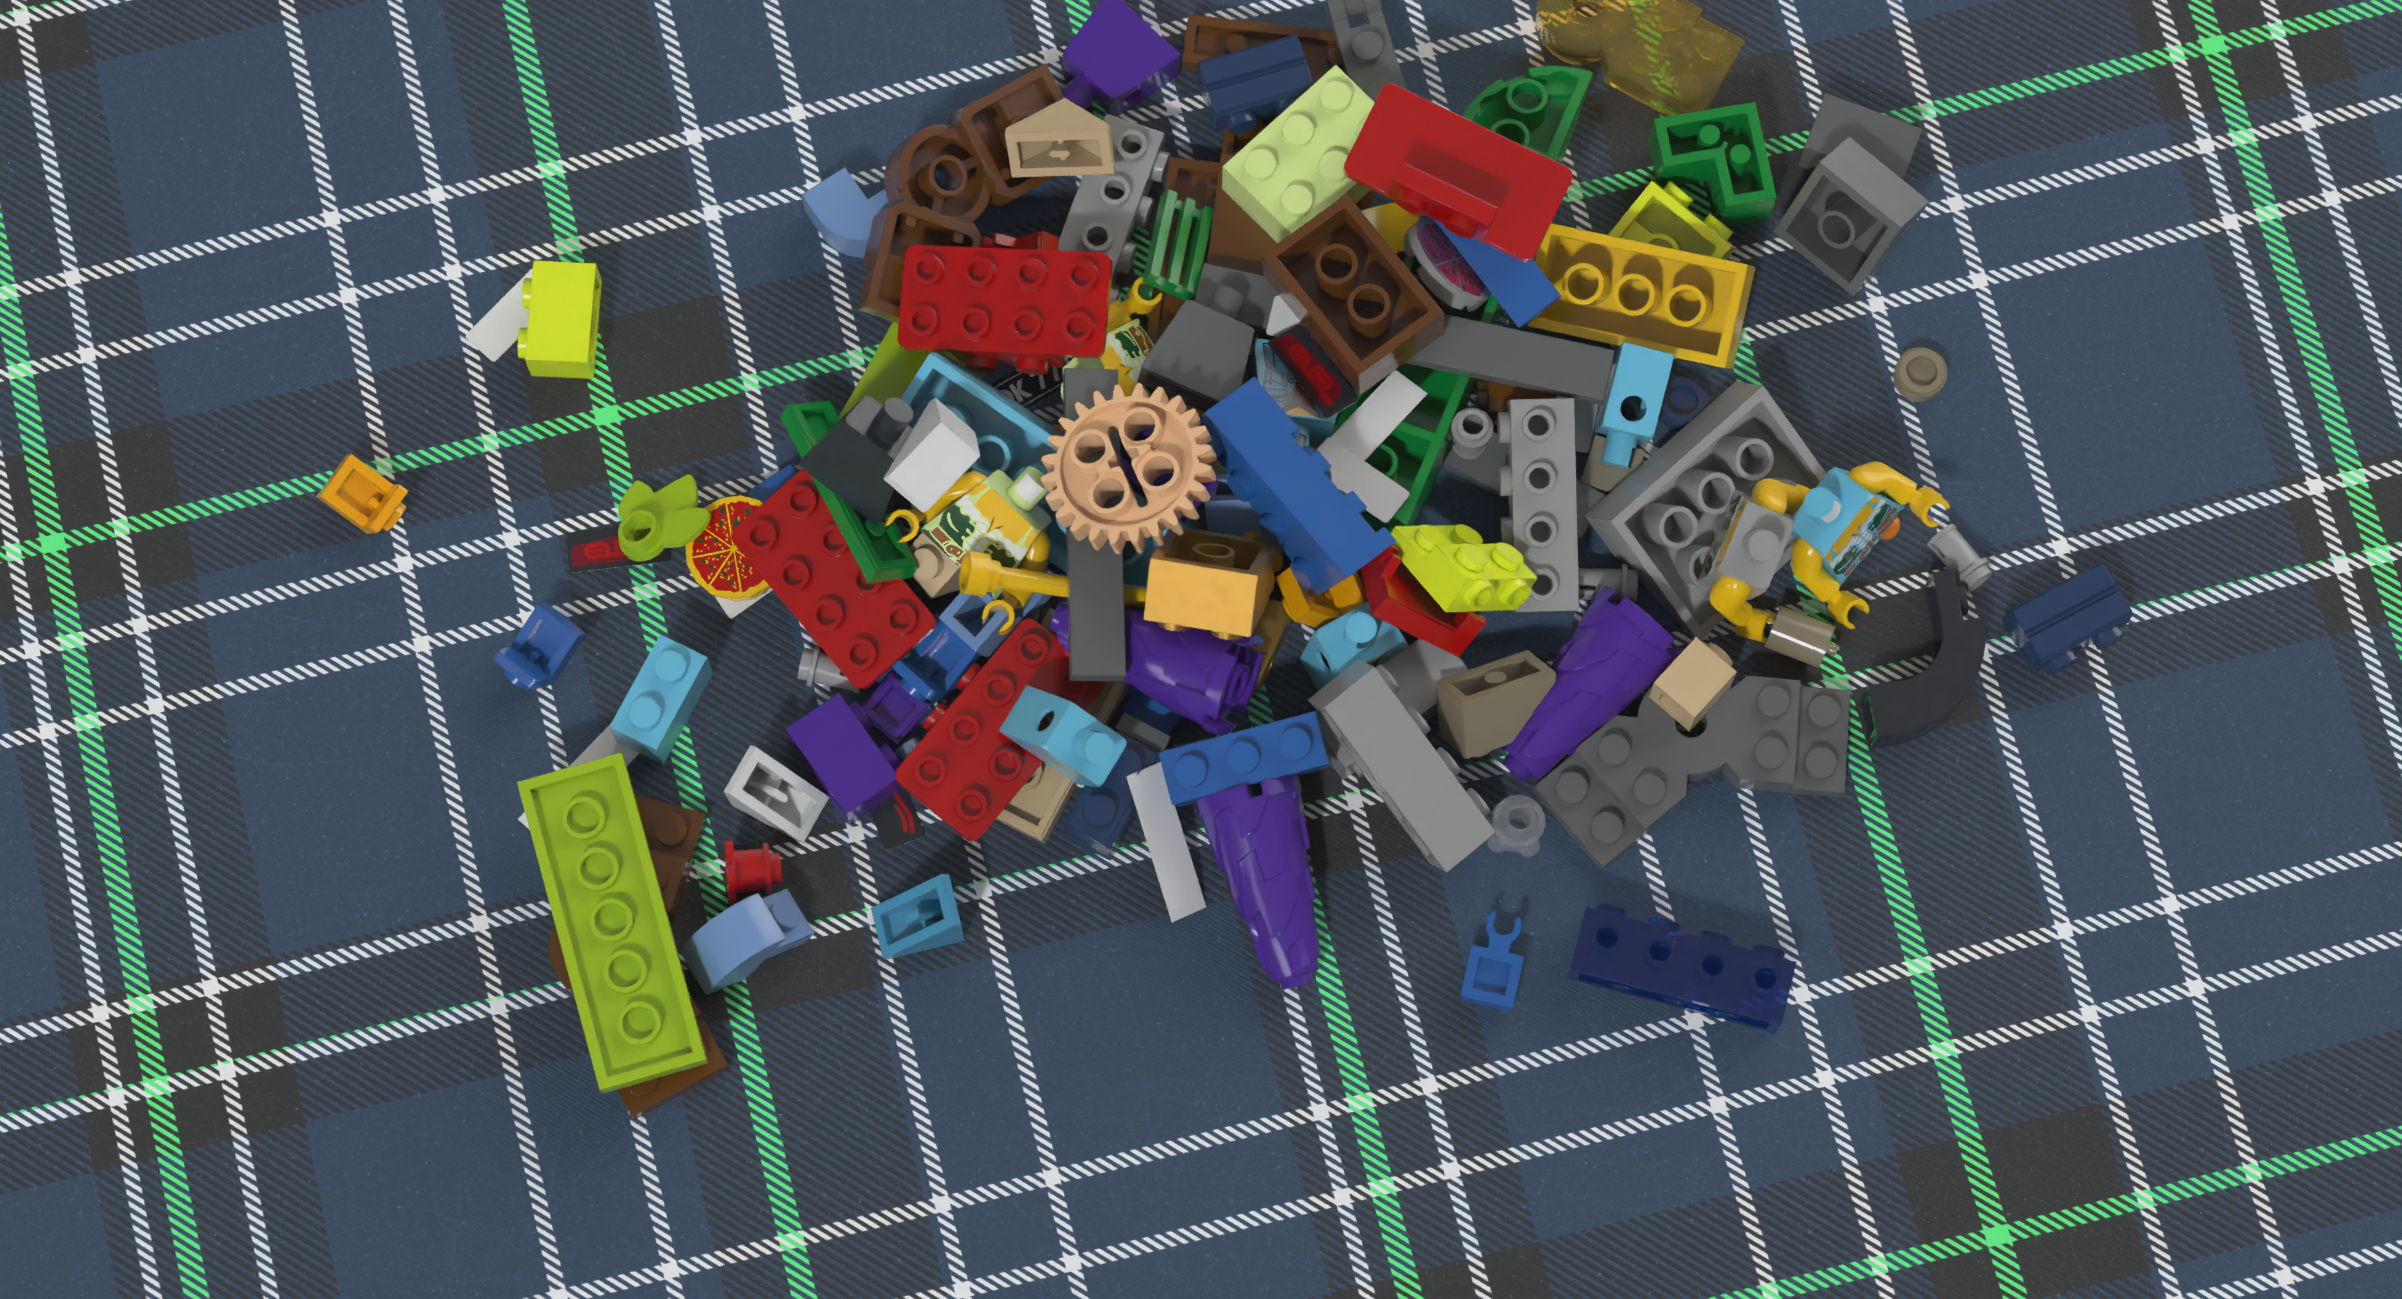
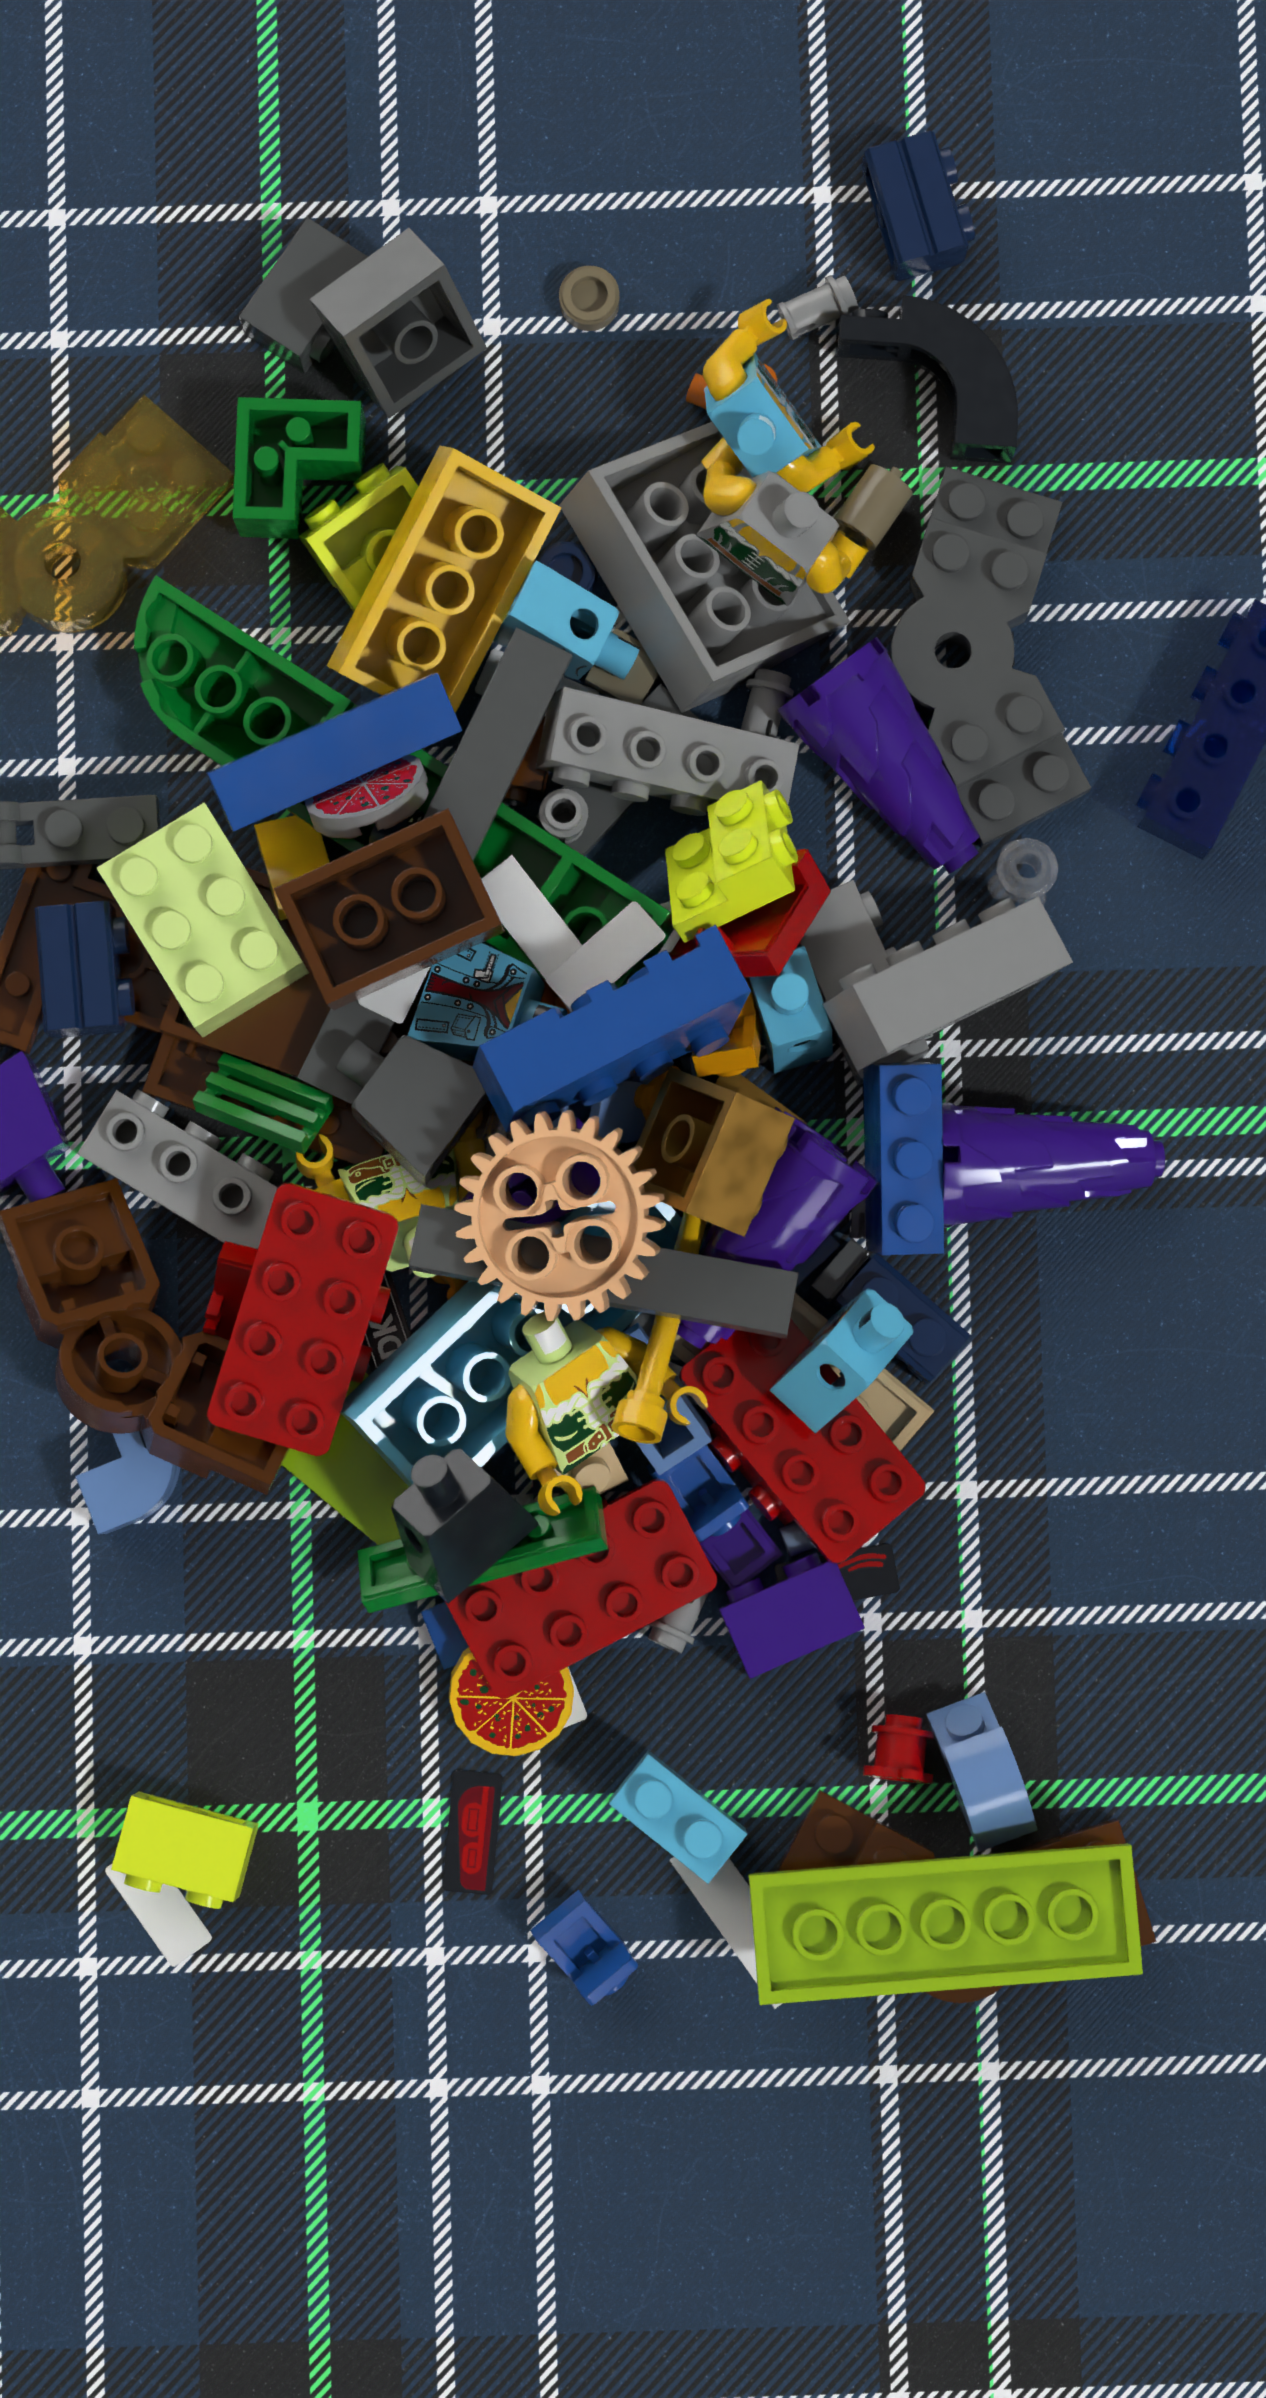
camera: 75 degrees left, 10 degrees up
(363, 496) = (354, 2123): light orange bracket -> none
(660, 518) = (447, 1770): lime plate -> none
(775, 795) = (819, 1704): white slope -> none
(918, 919) = (996, 1571): dark azure slope -> none
(933, 456) = (488, 1439): white slope -> none
(1060, 143) = (110, 1213): tan slope -> none
(1166, 842) = (969, 1270): white sticker -> none
(1313, 370) = (463, 978): sticker -> none
(1457, 173) = (271, 755): red bracket -> none
(1491, 702) = (888, 865): dark tan slope -> none
(1492, 971) = (1186, 938): blue plate -> none
(1693, 682) = (917, 633): tan brick -> none

